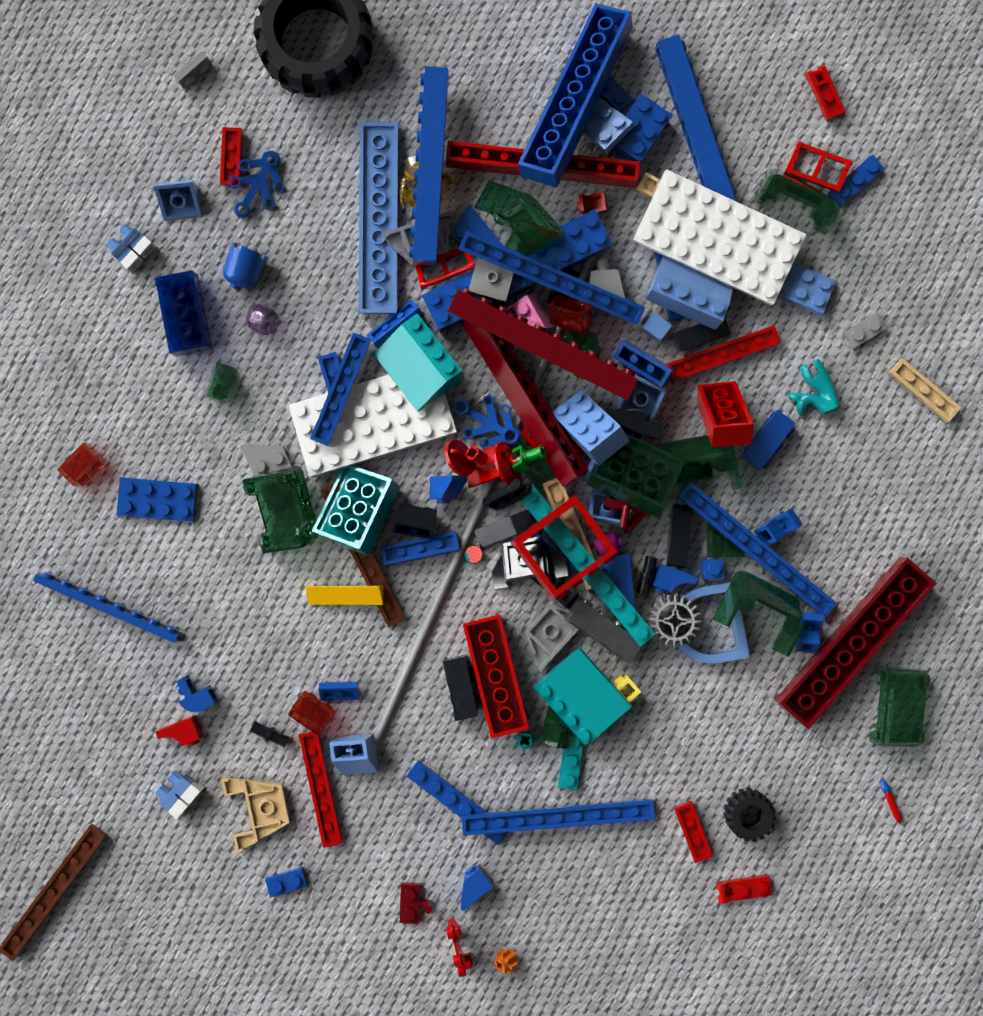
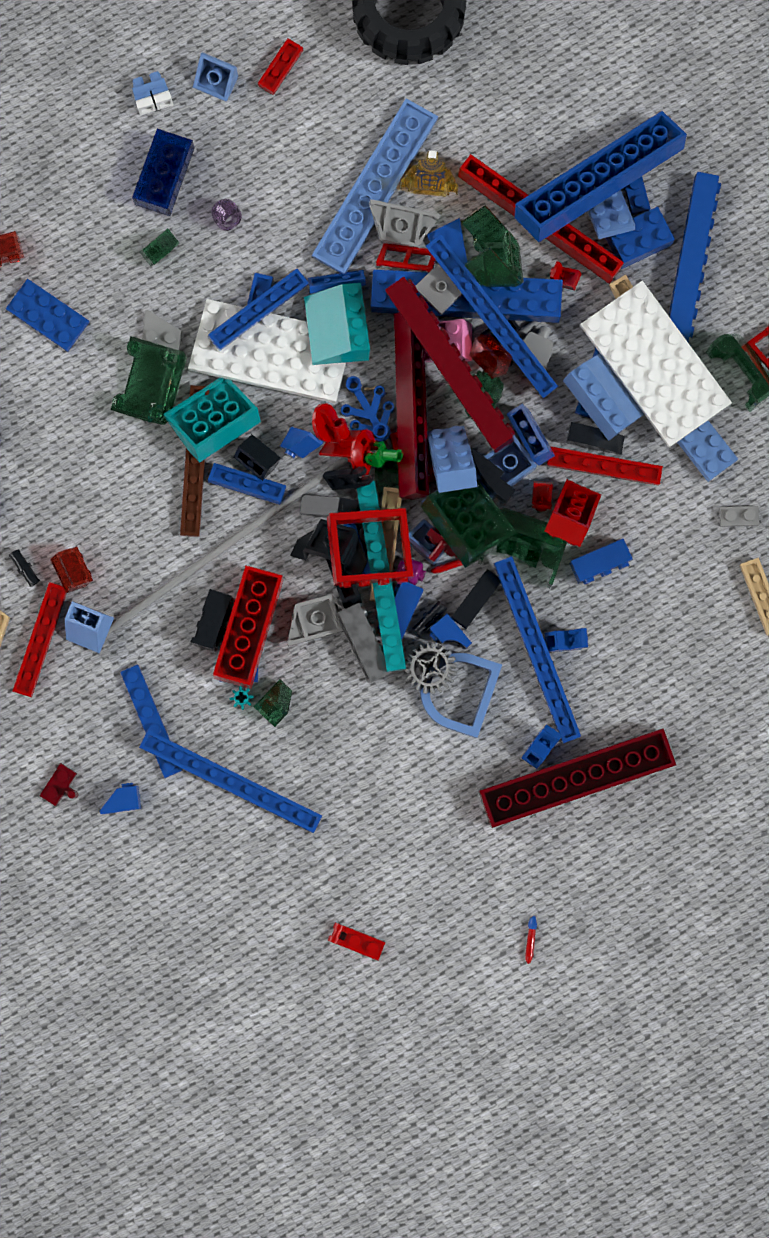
camera: 25 degrees right, 5 degrees down
(243, 267) = (236, 162): blue cylinder -> none
(258, 181) = (291, 99): blue plant -> none
(339, 691) = (105, 565): blue plate -> none
(345, 595) = (159, 485): yellow slope -> none
(430, 165) = (443, 166): blue brick -> none
(461, 960) = (75, 861): red plant -> none
(473, 554) = (290, 515): coral tile -> none
(506, 961) = (112, 882): orange gear -> none
(570, 765) = (270, 742): teal plate -> none
(582, 696) = (312, 687): teal slope -> none
(627, 688) = (354, 704): light yellow brick -> none
(655, 326) = (558, 410): medium blue brick -> none
(683, 411) = (542, 495): none -> red bracket
(693, 831) = (341, 864): red plate -> none
(712, 568) = (488, 643): blue brick -> none
(720, 546) = (507, 629): clear green wing -> none
(749, 589) = (510, 675): clear green windscreen -> none
(757, 828) = (386, 888): black tyre -> none
(823, 385) = (676, 539): teal piece -> none
(900, 707) = (585, 858): clear green windscreen -> none

